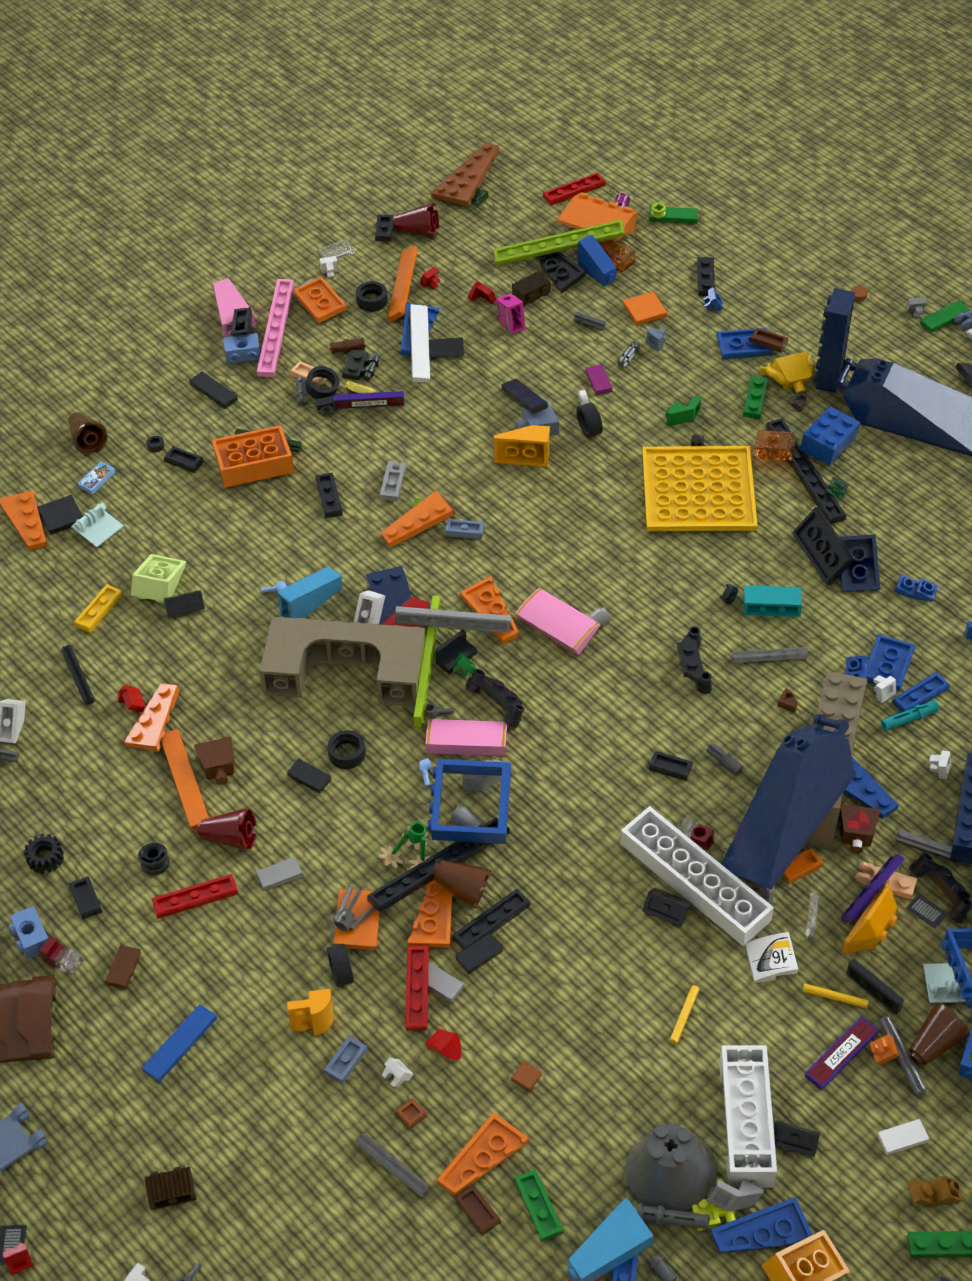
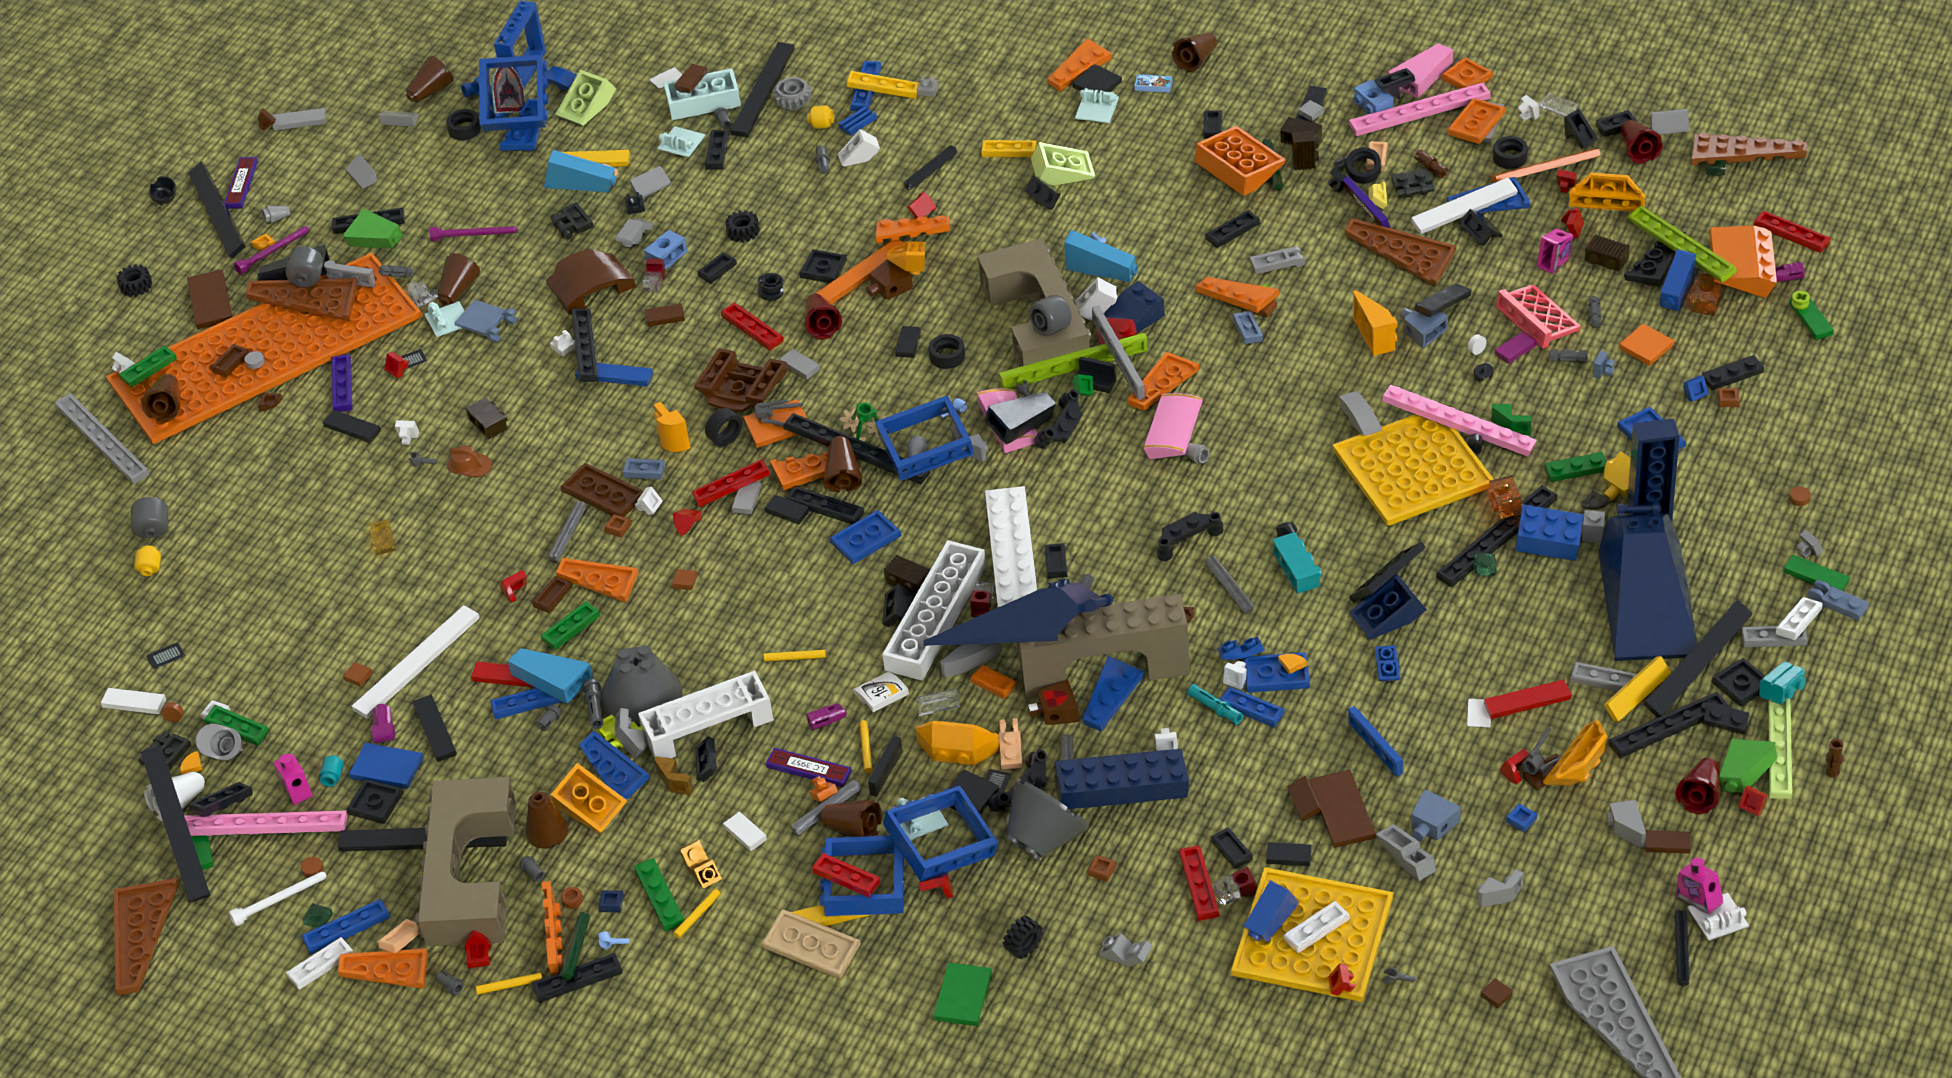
camera: 70 degrees right, 5 degrees down
(100, 1076) = (563, 343): none -> white tile
(123, 1054) = (584, 345): none -> black tile
(151, 807) = (823, 266): none -> black tile
(155, 444) = (1219, 100): black tile -> none
(206, 725) = (909, 256): none -> light orange wedge
(223, 1232) = (467, 462): none -> dark orange piece
(225, 389) = (1311, 110): none -> light grey tile
(247, 406) = (1297, 125): none -> dark brown brick
(254, 286) = (1466, 74): none -> orange tile
(278, 409) = (1304, 150): none -> dark brown brick
(283, 930) = (738, 384): none -> reddish brown slope
(350, 1111) = (602, 490): none -> reddish brown tile
(379, 246) = (1577, 125): none -> black slope
(395, 641) = (1050, 315): none -> dark grey head
(406, 199) = (1670, 121): none -> light grey slope
(445, 395) = (1414, 253): none -> dark orange wing
(446, 1243) = (513, 583): none -> red tile
(468, 260) = (1606, 192): none -> light orange wedge
(485, 721) = (1019, 416): none -> slope
(554, 901) = (865, 536): none -> blue tile
(569, 361) = (1528, 320): none -> coral fence
(589, 420) = (1442, 354): black tyre -> none
(615, 408) = (1483, 371): none -> black piece
(622, 496) = (1359, 413): none -> light grey slope
(632, 883) = (905, 573): none -> dark brown brick
(639, 786) = (1010, 543): none -> white brick
(668, 440) = (1459, 420): none -> bright pink plate
(730, 289) = (1728, 397): none -> dark orange tile
(784, 1016) = (825, 716): none -> magenta hinge
(798, 1179) = (668, 772): none -> pearl gold slope
(821, 404) = (1593, 526): none -> light grey slope
(872, 888) = (1002, 729): dark purple tile -> none
(891, 645) = (1292, 662): none -> light orange tile
(930, 930) = (976, 789): none -> black tile

